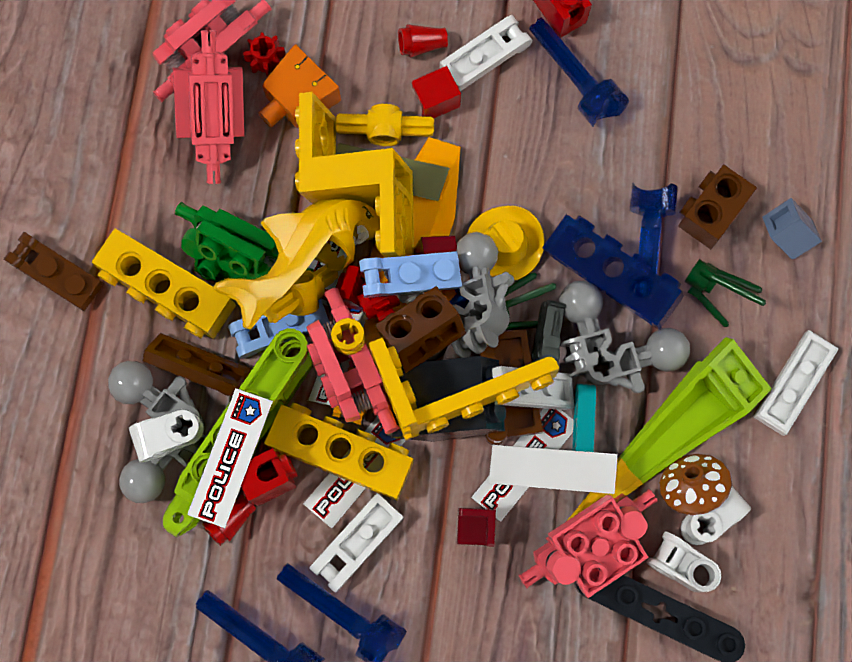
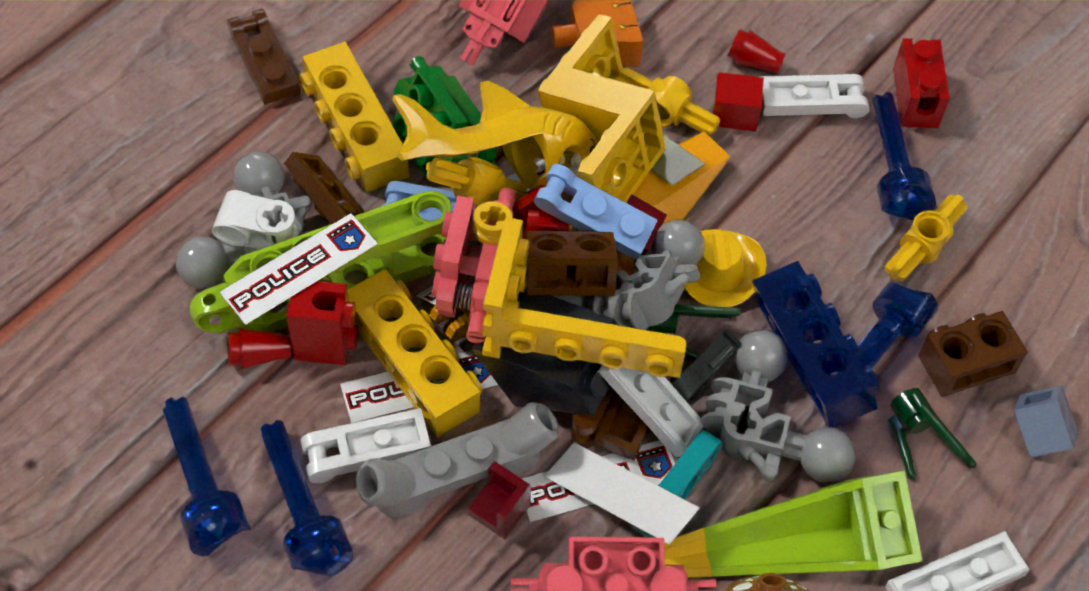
camera: 30 degrees right, 20 degrees down
(429, 517) = (406, 482): none -> light grey plate
(633, 143) = (926, 237): none -> yellow axle

